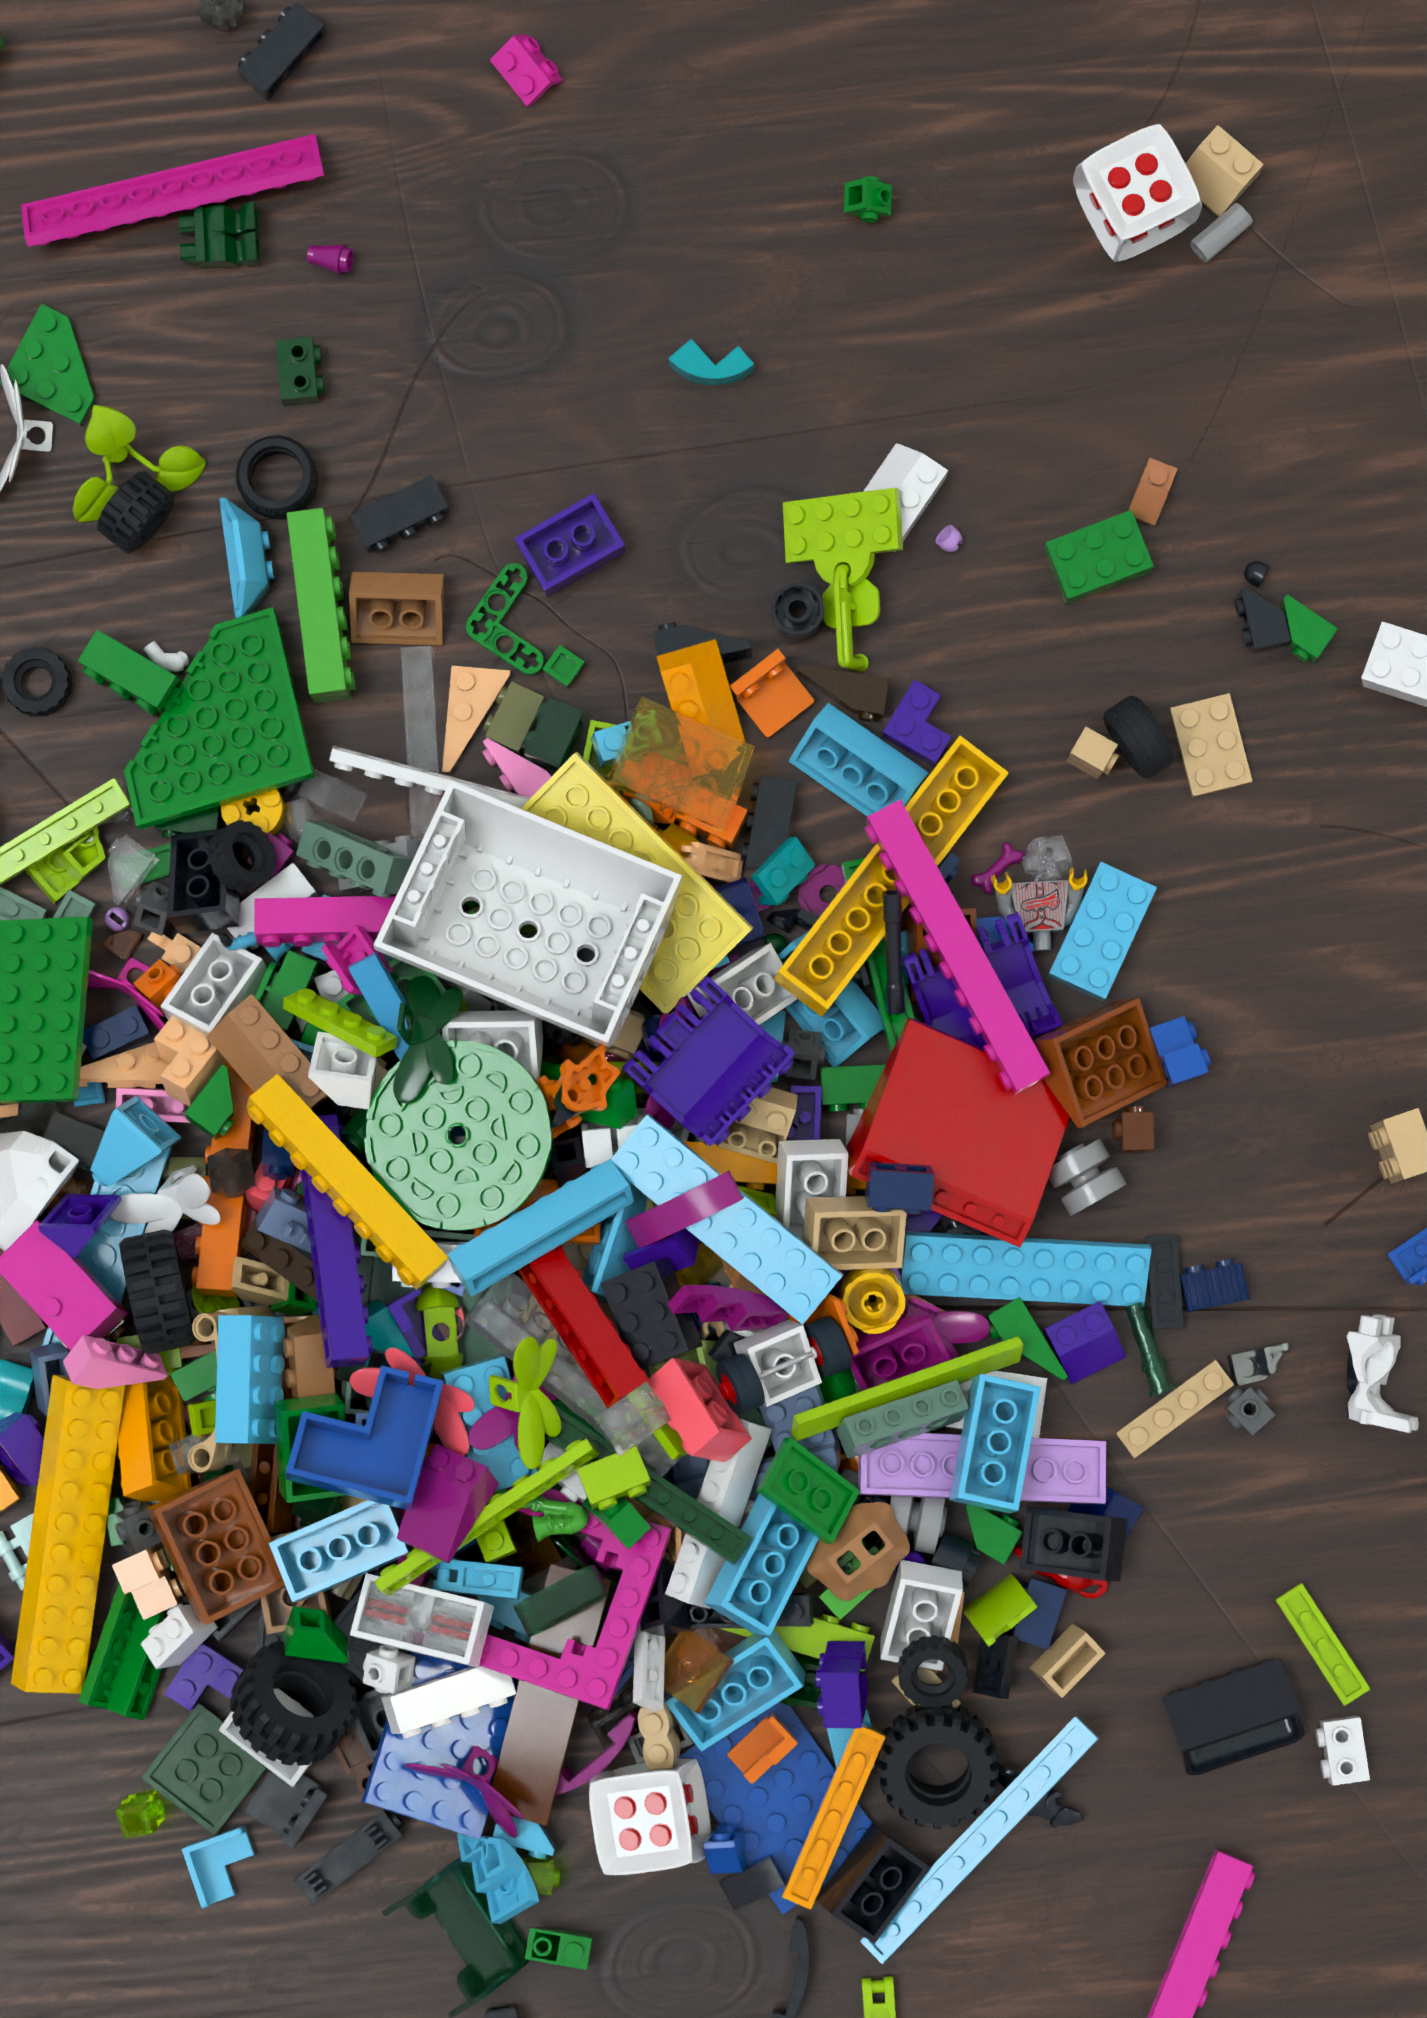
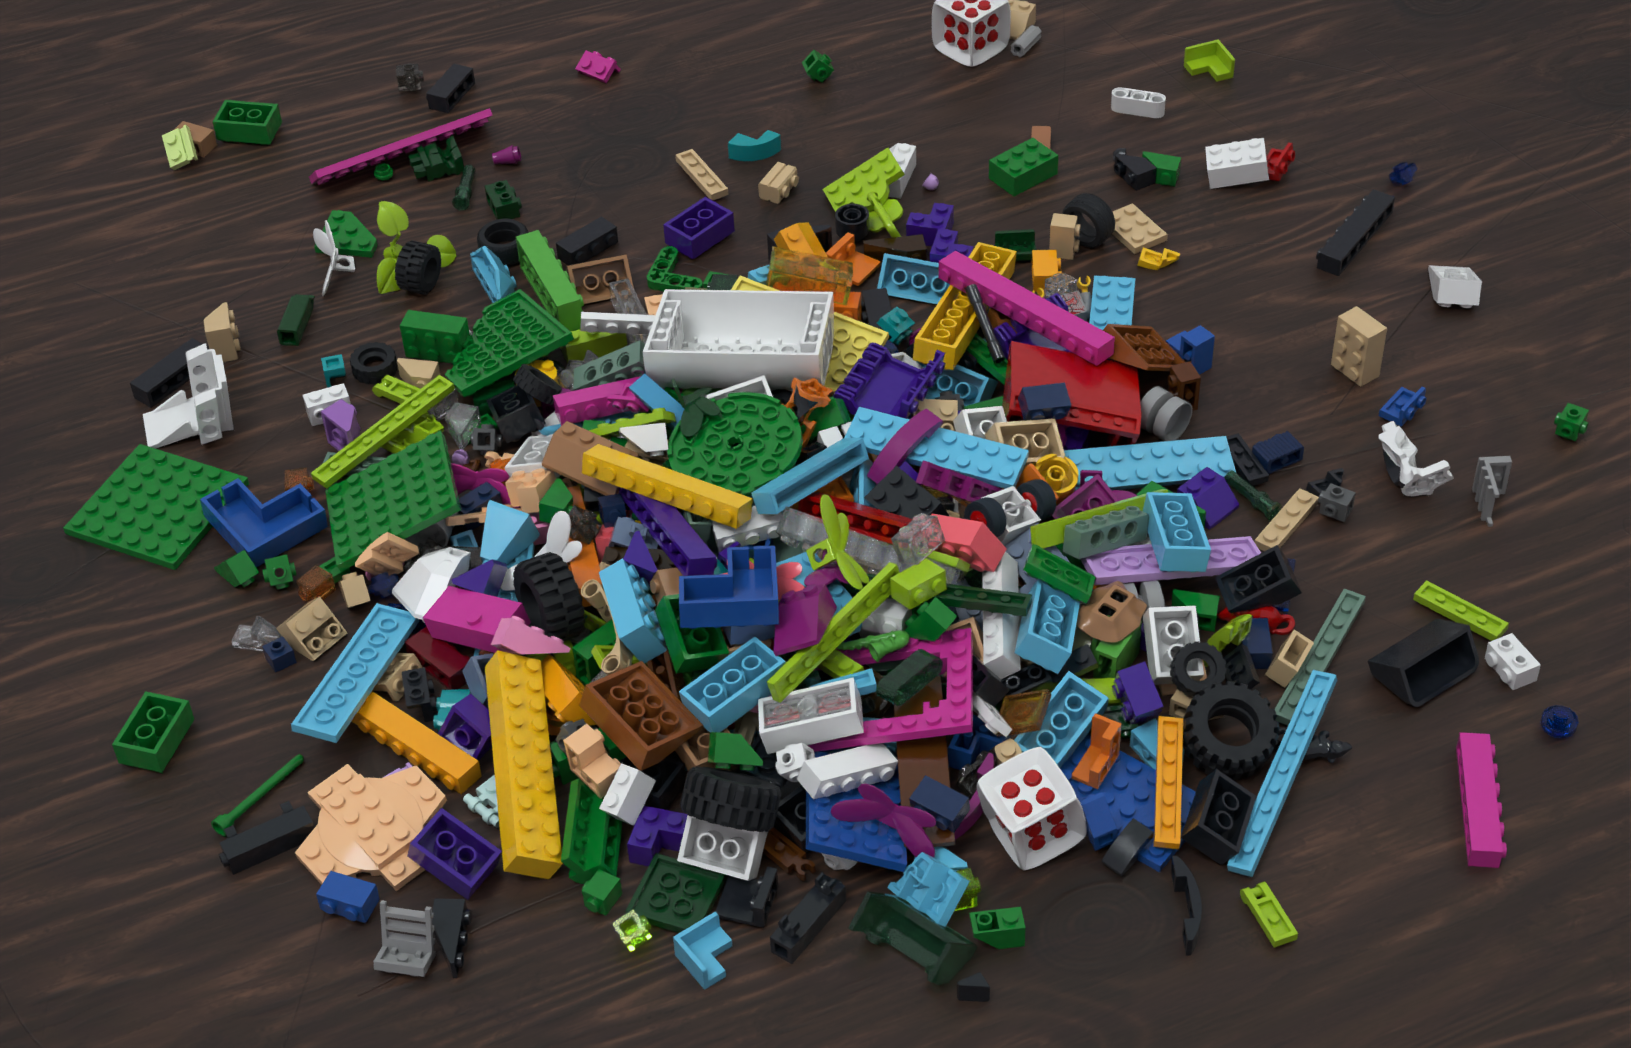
camera: 20 degrees left, 40 degrees down
(64, 759) = (394, 389): none -> lime plate
(95, 734) = (417, 371): none -> tan slope
(119, 1739) = (601, 892): none -> green brick
(145, 236) = (383, 172): none -> green plate
(246, 324) = (463, 191): none -> clear green pin
(273, 1299) = (640, 558): none -> dark purple slope
(358, 727) = (597, 342): none -> lime slope
(540, 1783) = (941, 802): none -> dark blue brick
(612, 404) = (701, 174): none -> tan plate
(721, 467) = (778, 182): none -> tan brick
(913, 659) = (940, 218): none -> dark purple brick
(1019, 738) = (1018, 240): none -> dark green bracket
(1043, 805) = (1044, 266): none -> light orange brick
(1120, 1651) = (1323, 650): none -> sand green plate
(1214, 825) = (1155, 260): none -> yellow slope
(1317, 455) = (1138, 102): none -> white beam
(1355, 1860) = (1559, 721): none -> clear blue plate

